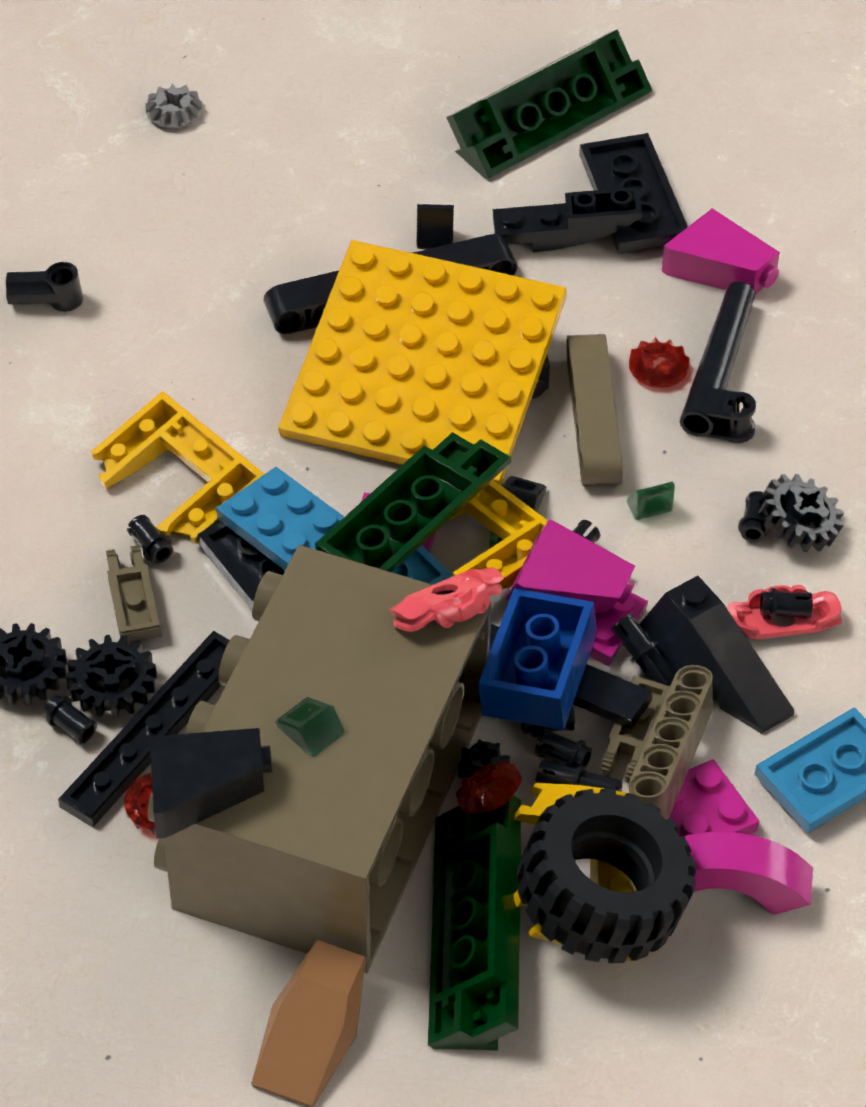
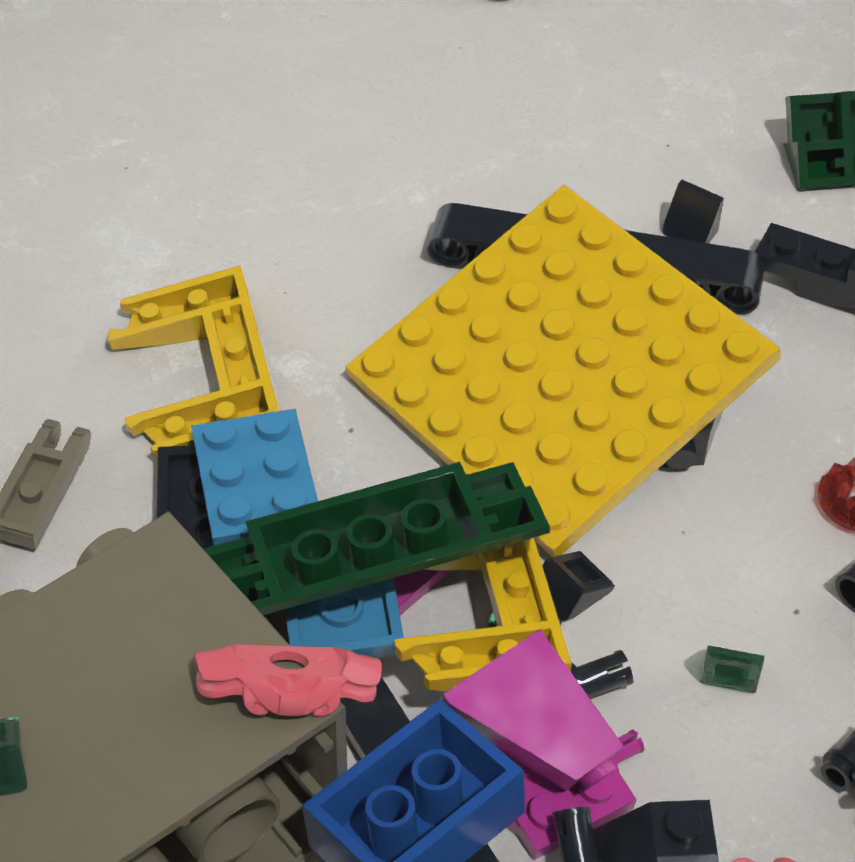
camera: 30 degrees right, 0 degrees up
(56, 285) = (223, 102): black piece -> none
(155, 546) = (108, 437): black pin -> none
(594, 410) = (733, 518): dark tan beam -> none

